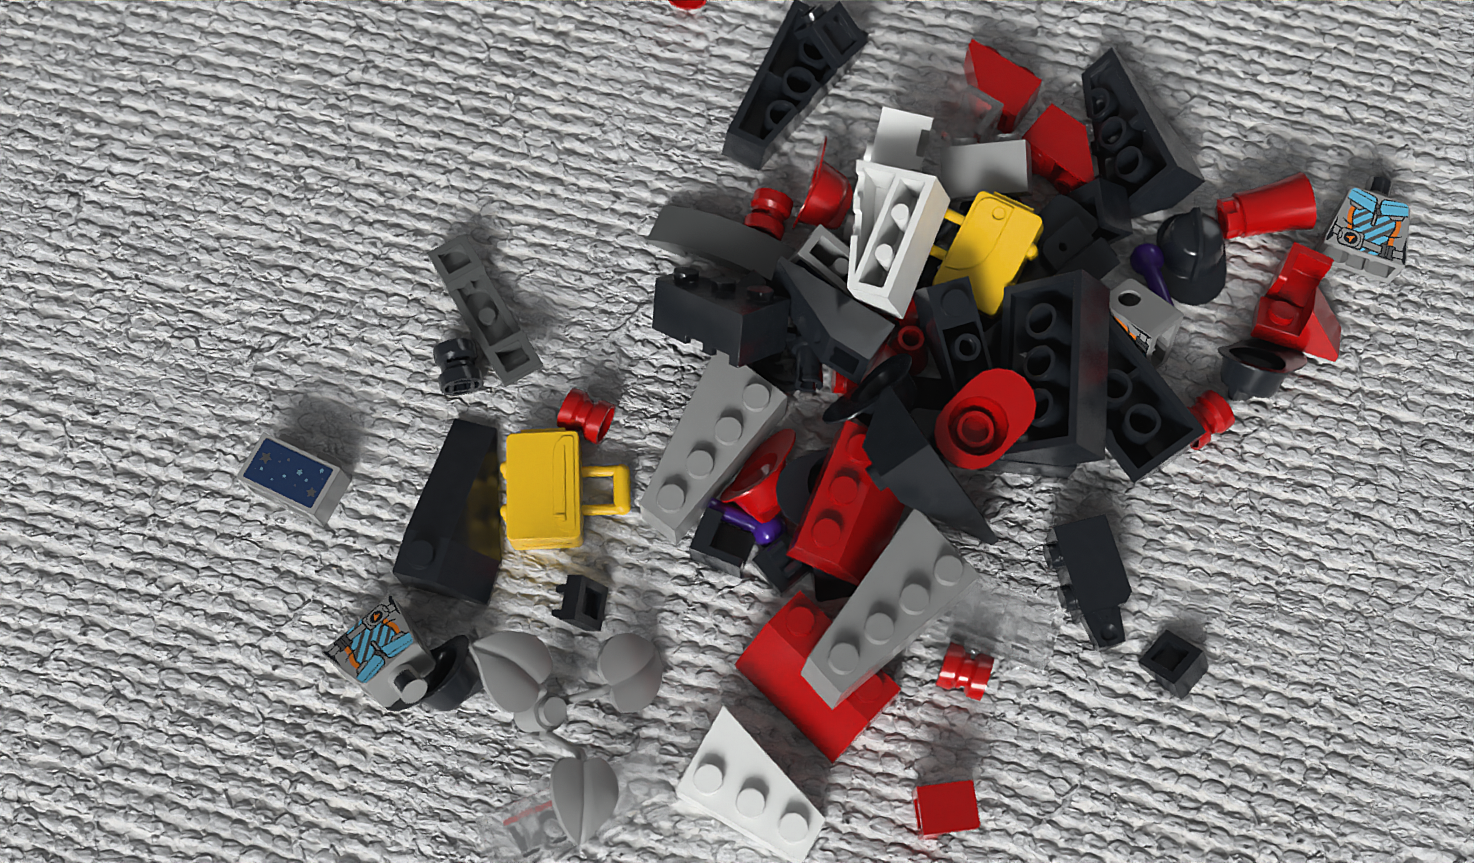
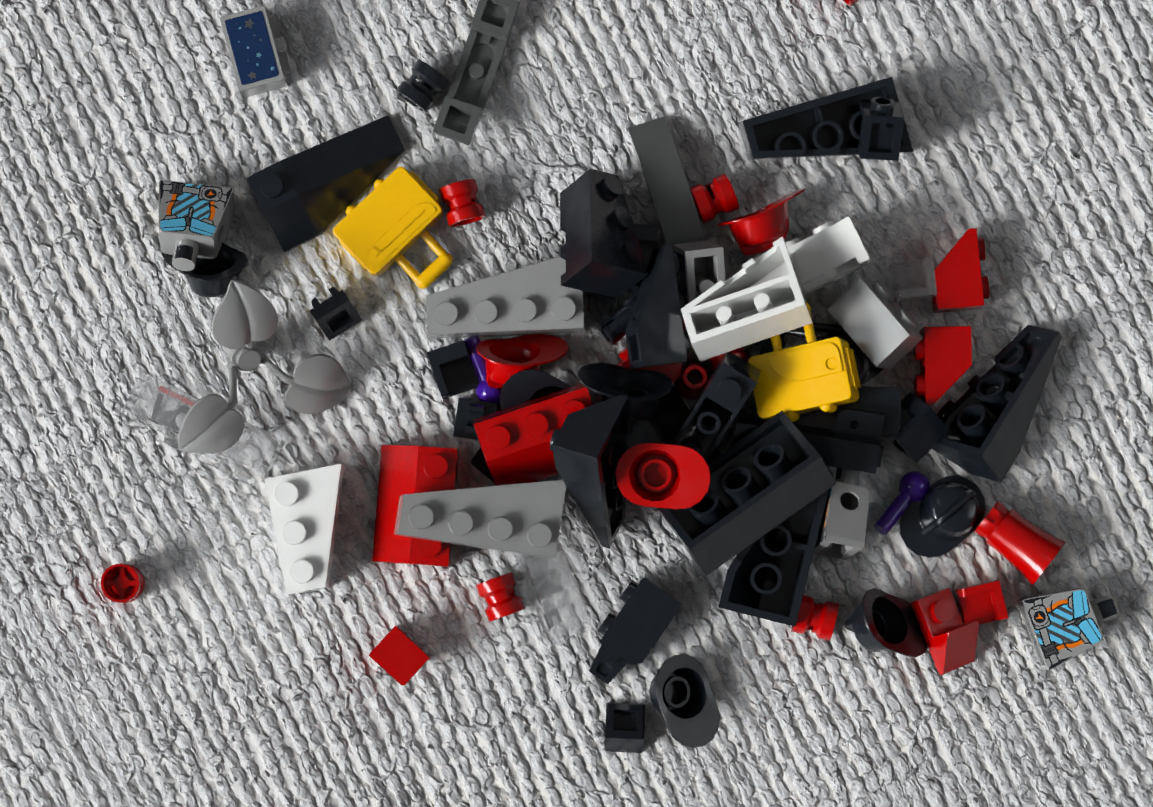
camera: 45 degrees right, 15 degrees up
(1191, 584) = (685, 700): none -> black piece

